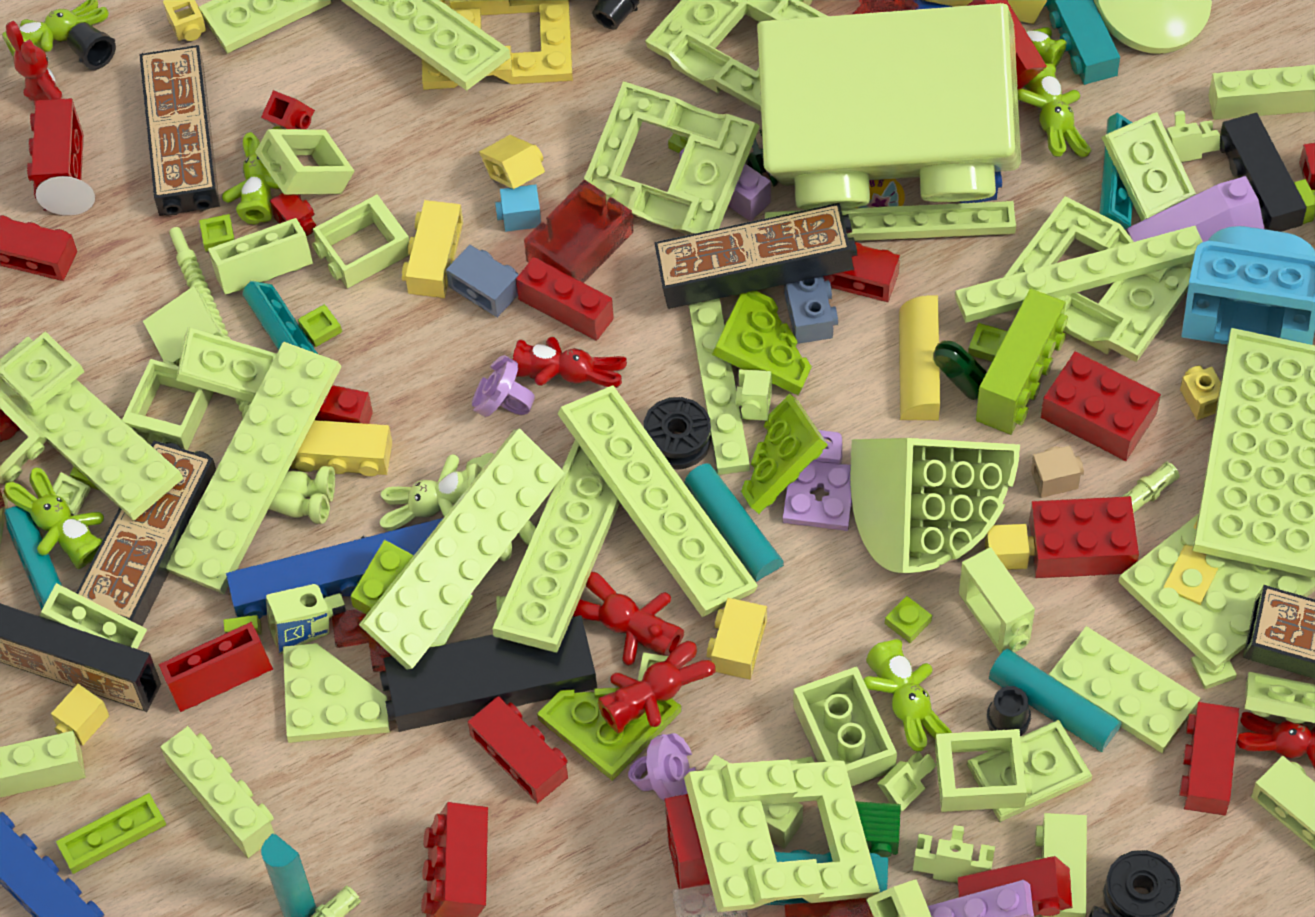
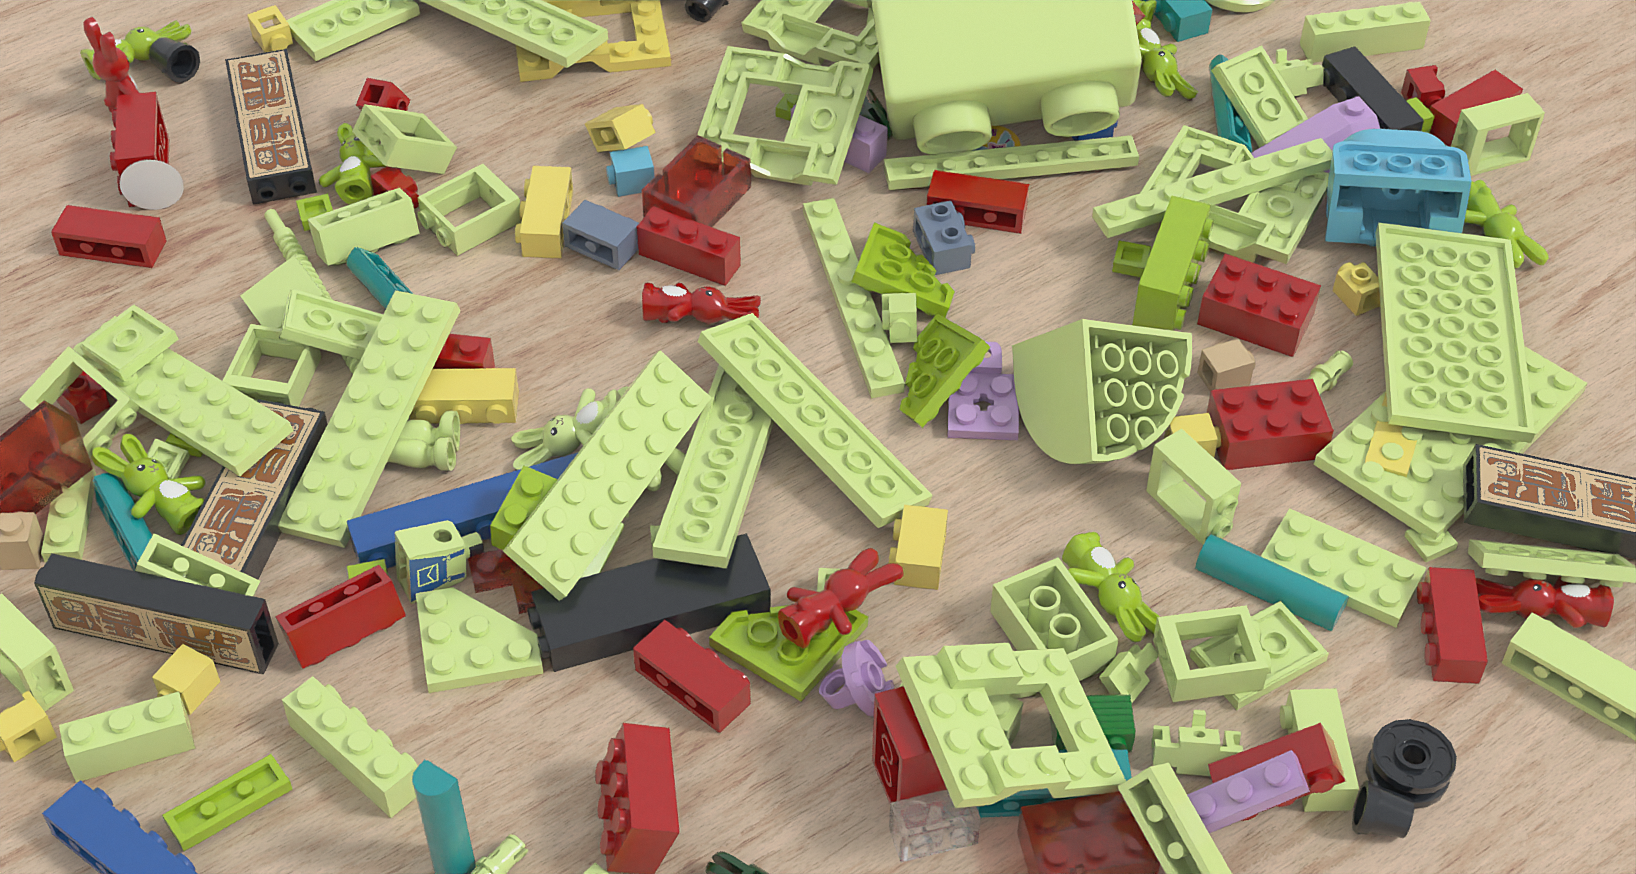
camera: 10 degrees left, 10 degrees down
(320, 325) = (432, 284): lime plate -> none
(502, 390) = (632, 329): lavender tile -> none
(622, 615) = (791, 534): red animal -> none
(682, 416) = (828, 354): black wheel -> none
(733, 522) = (900, 439): teal brick -> none
(755, 255) = (883, 189): brick -> none
(908, 619) = (1098, 516): lime plate -> none
(917, 368) = (1064, 272): light yellow brick -> none
(959, 367) = (1110, 278): dark green arm -> none
(1009, 710) = (1226, 589): black piece -> none

